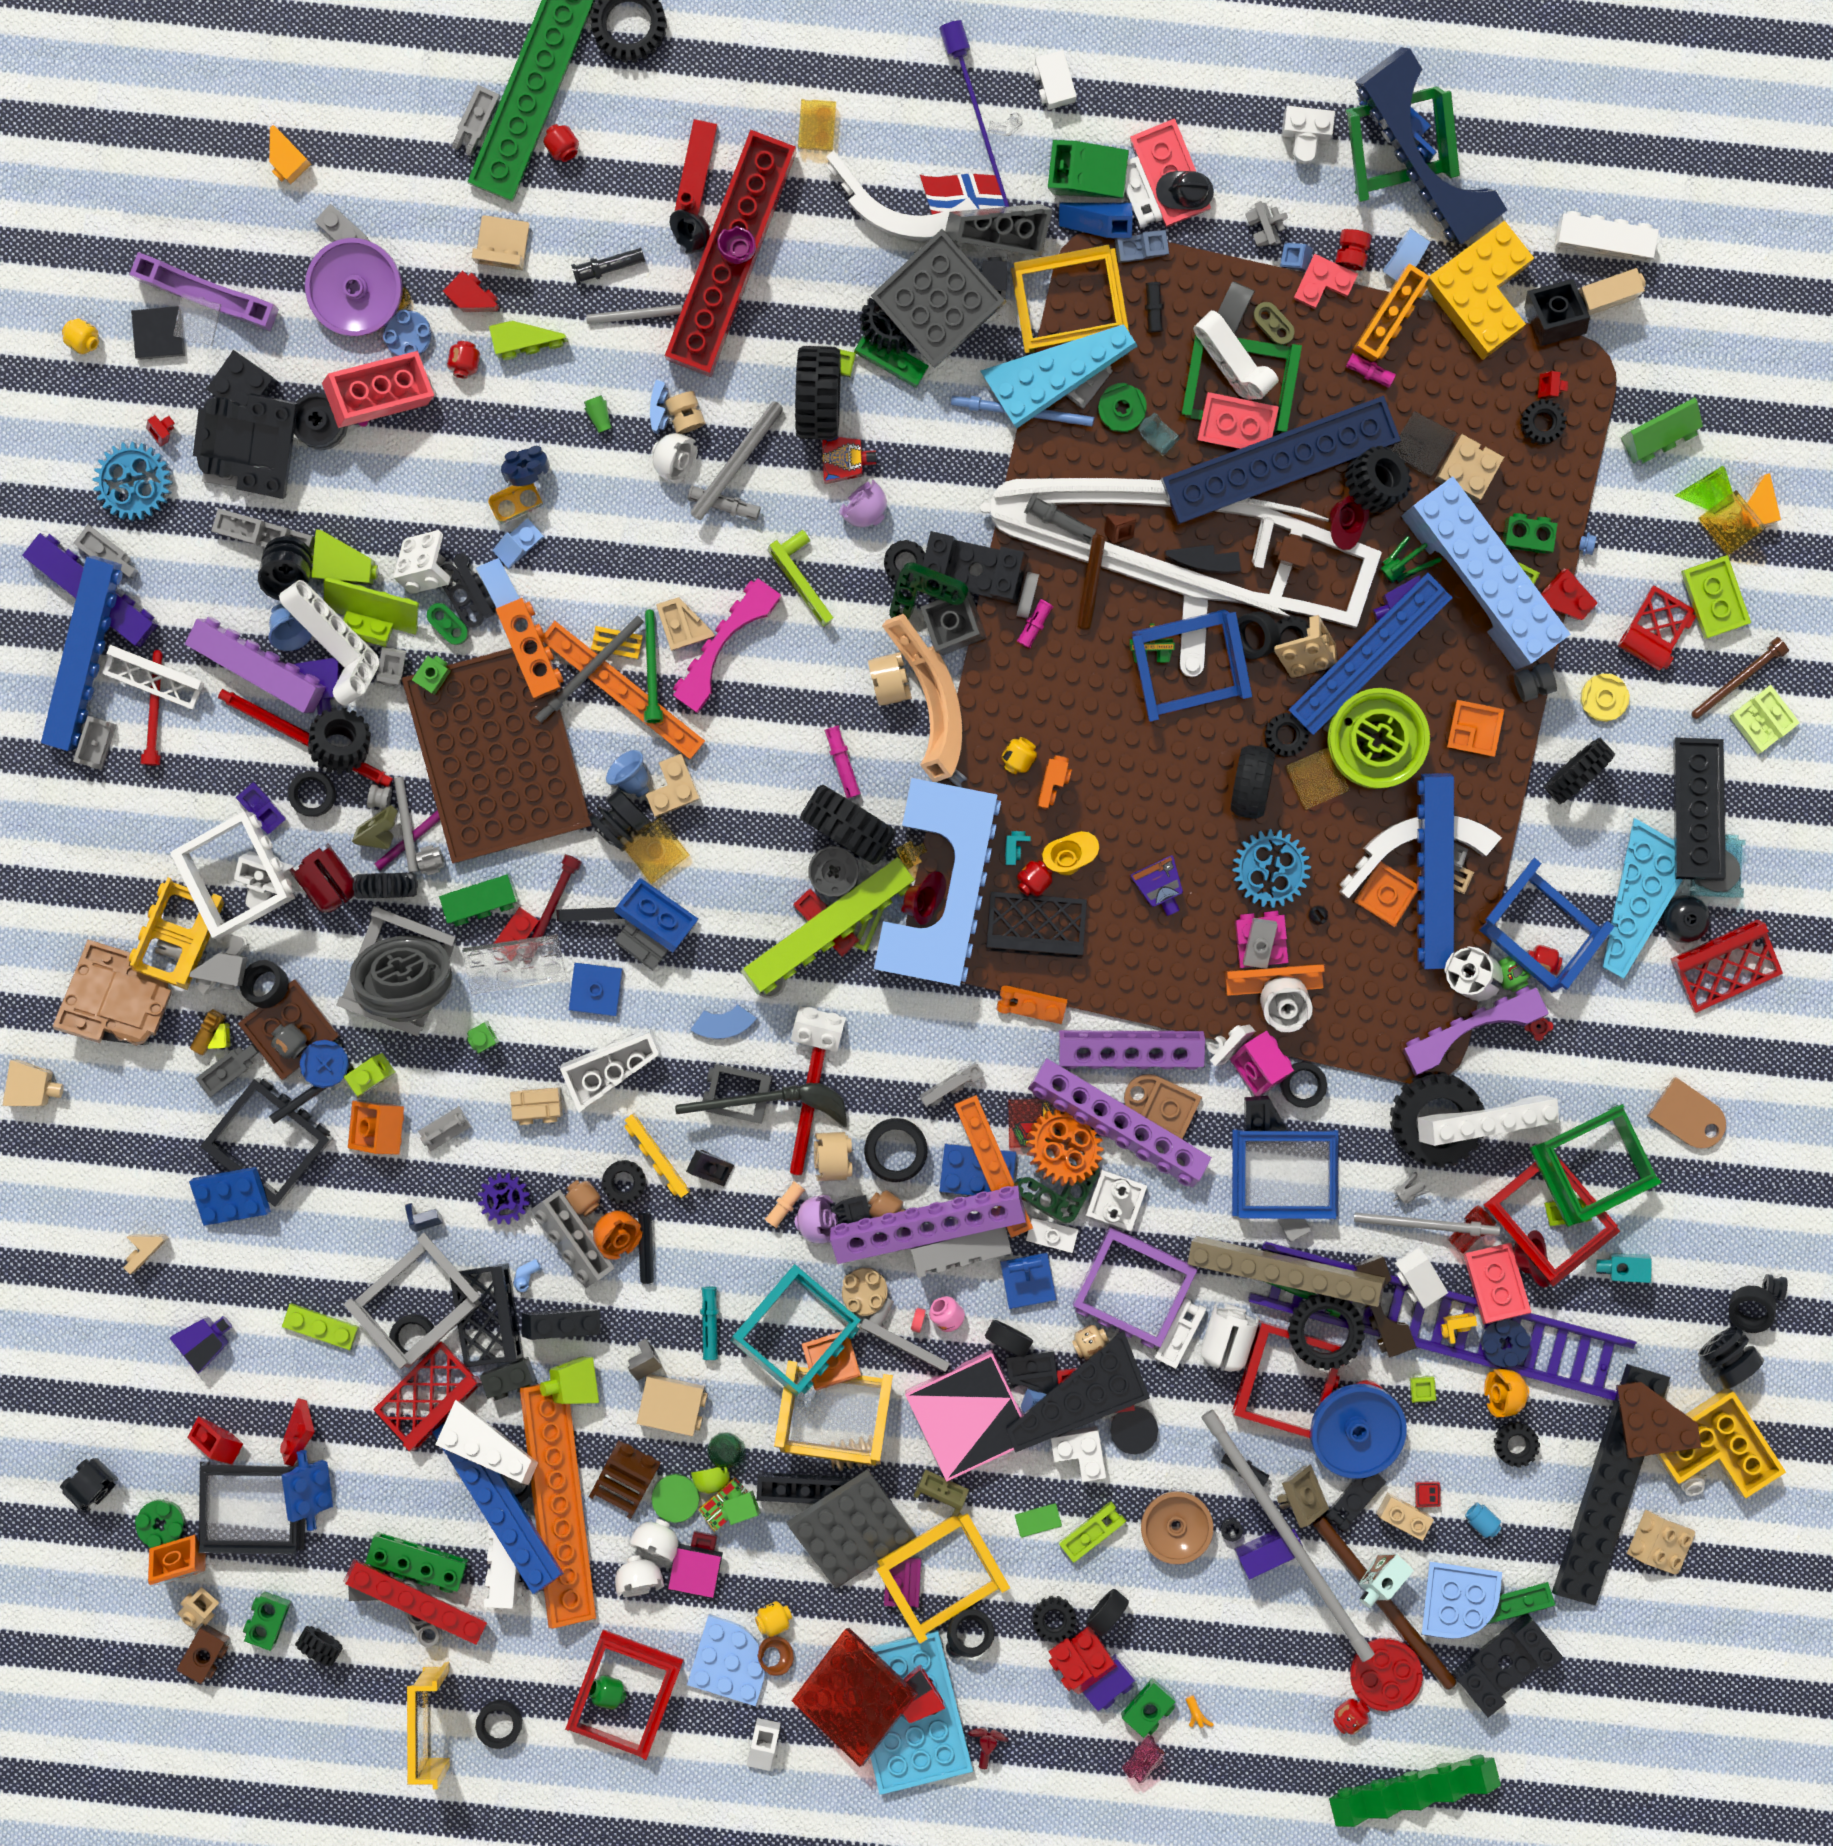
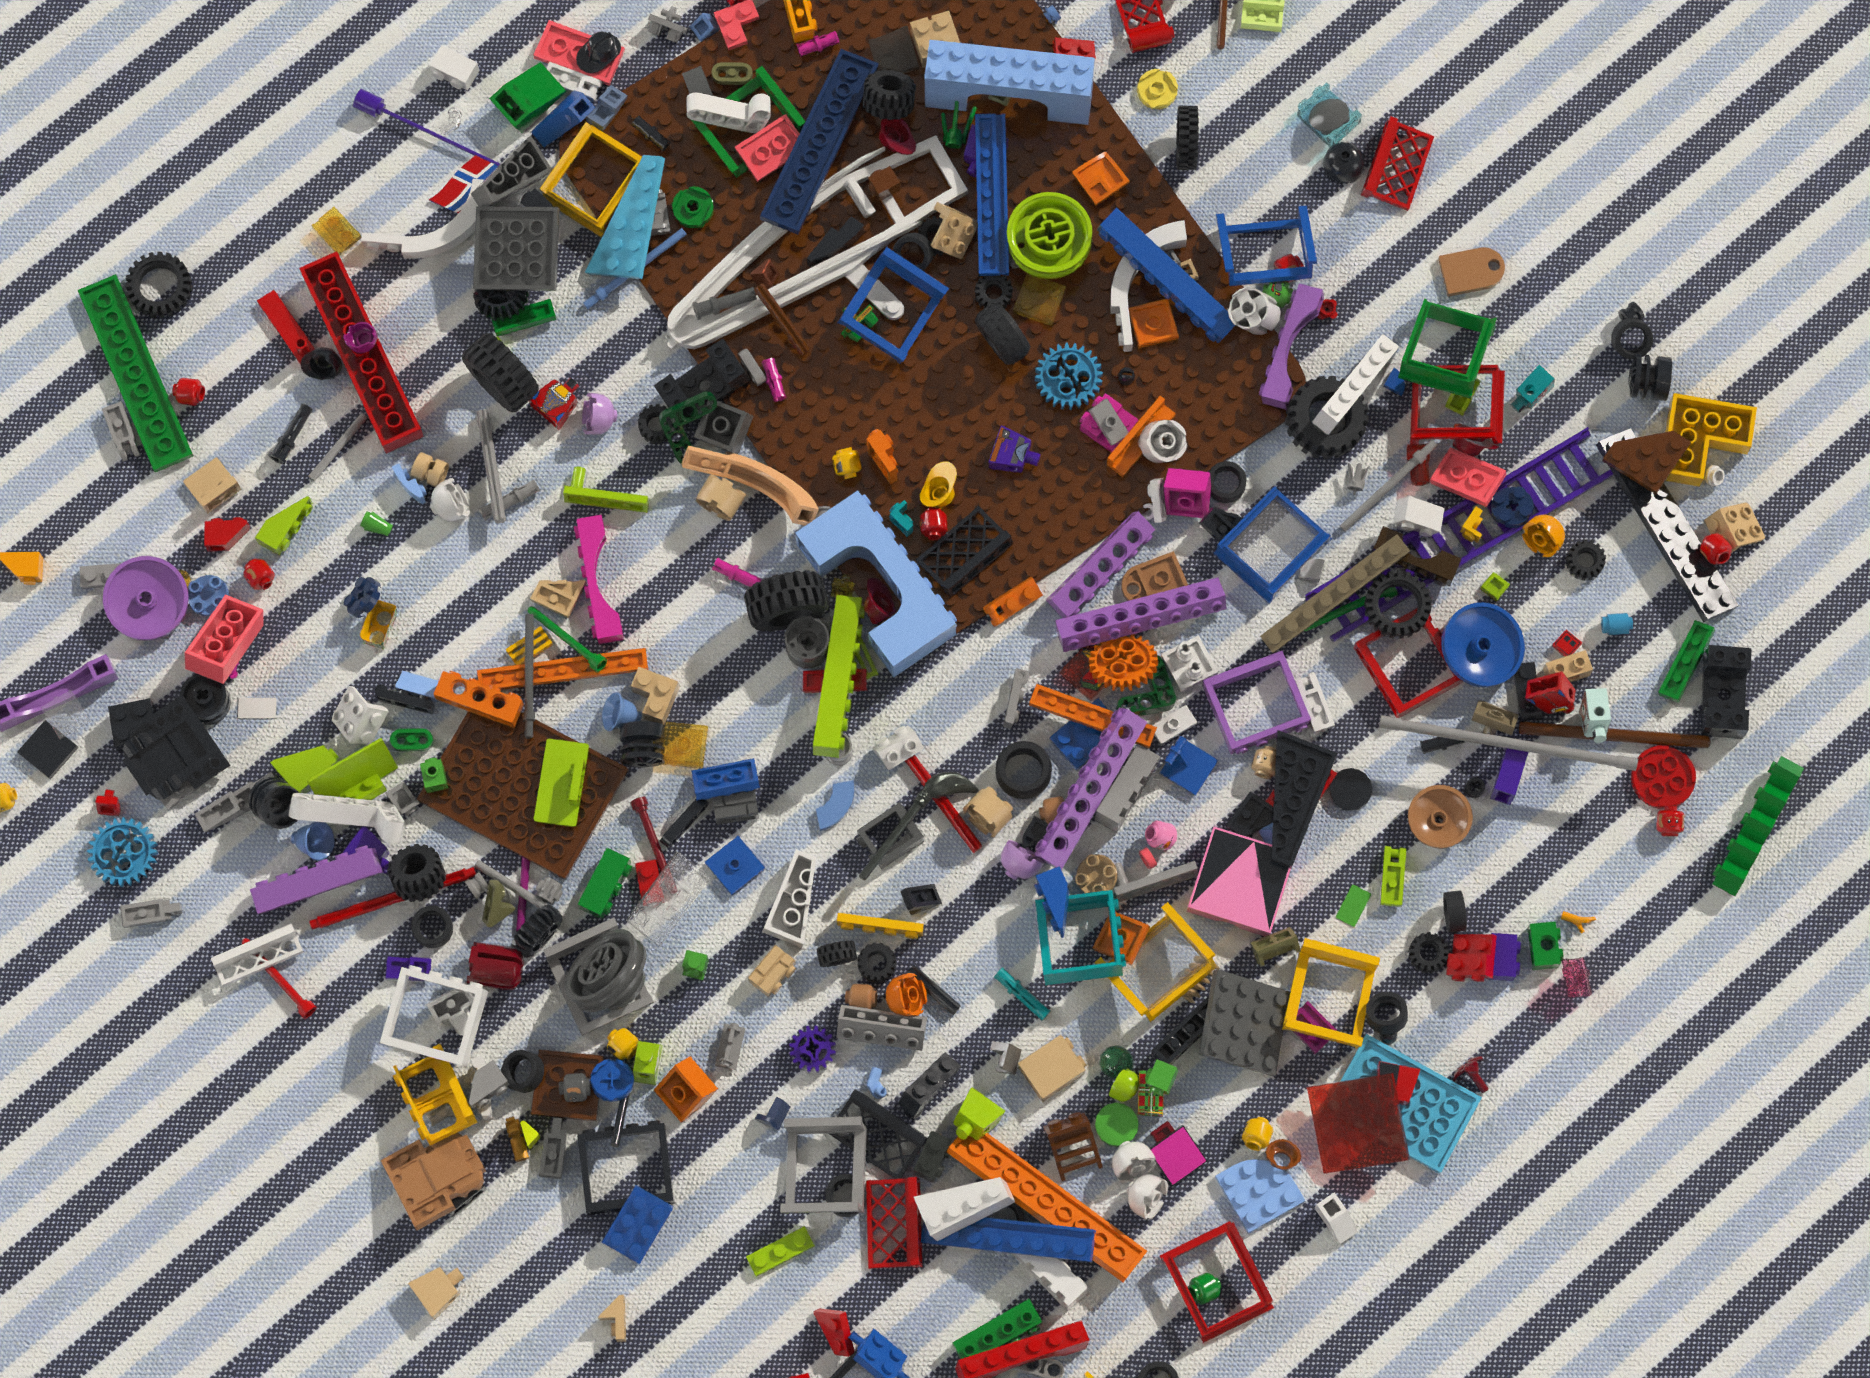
camera: 45 degrees left, 15 degrees down
(67, 573) = (162, 944): dark purple brick -> none
(81, 653) = (197, 983): blue brick -> none
(94, 742) = (261, 1034): light grey hinge -> none
(202, 1341) = (714, 1336): torso -> none
(355, 469) = (257, 707): none -> white sticker
(362, 1042) = (622, 1043): none -> yellow head
(450, 593) = (397, 708): black beam -> none
(517, 543) = (405, 650): light blue slope -> none
(525, 784) = (561, 782): none -> lime bracket
(598, 1145) = (836, 953): none -> black tyre
(785, 1204) = (991, 873): light nougat pin -> none
(813, 1278) = (1055, 893): none -> blue slope
(1008, 1338) = (1214, 809): black tyre -> none
(1082, 1445) = (1333, 828): white brick -> none
(1158, 434) = (730, 200): clear light blue bracket -> none
(1218, 1335) = (1346, 673): white cylinder -> none
(1374, 1529) = (1551, 693): none -> red torso
(1459, 1600) = (1654, 683): light blue plate -> none
(1525, 1141) = (1395, 384): none -> blue tile
(1529, 540) = (1014, 42): green brick -> none
(1533, 682) = (1107, 116): dark grey wheel -> none
(1626, 1547) = (1716, 549): none -> red head
(1642, 895) = (1299, 165): medium azure wing -> none
(1699, 809) = (1280, 91): black plate -> none

